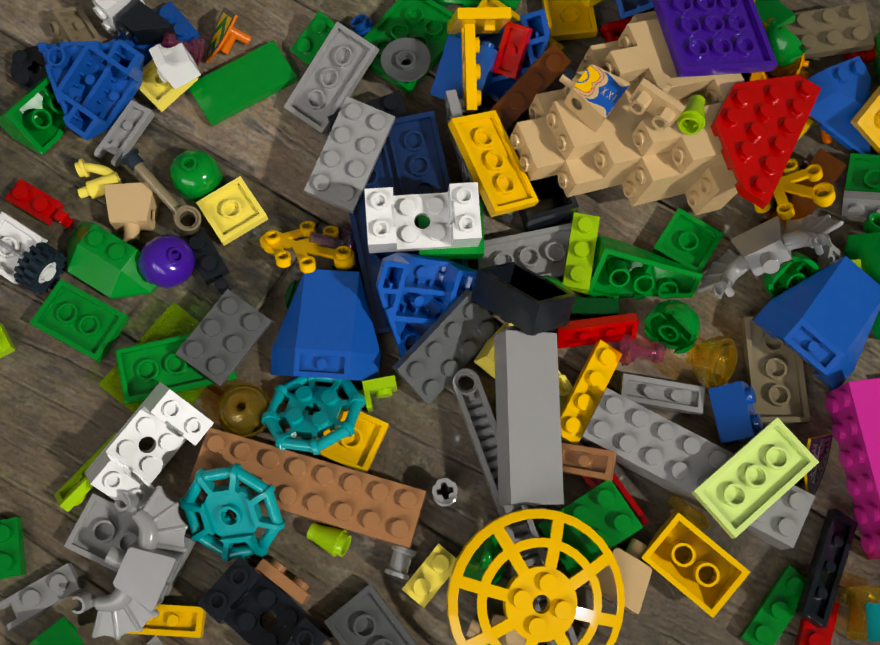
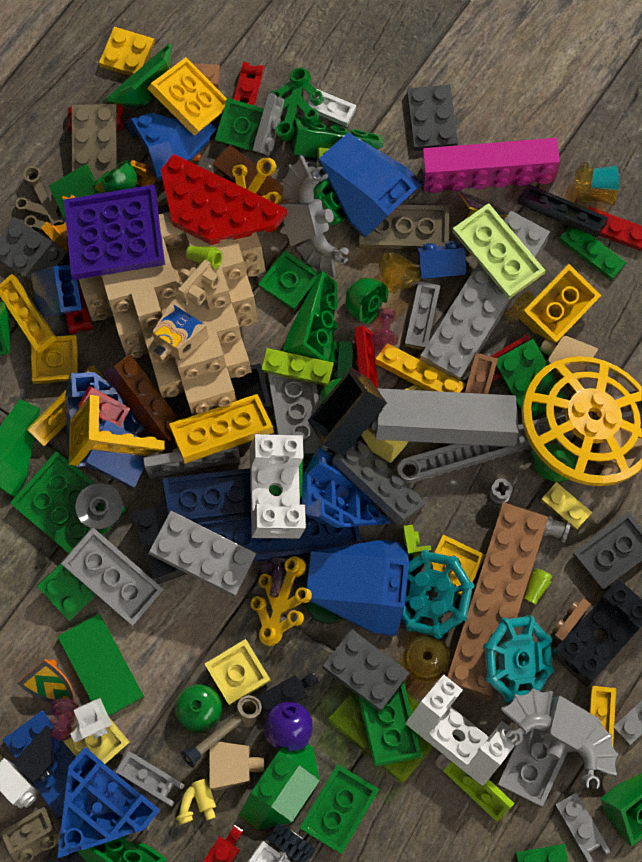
camera: 85 degrees left, 0 degrees up
(361, 24) = (49, 551): blue plate -> none

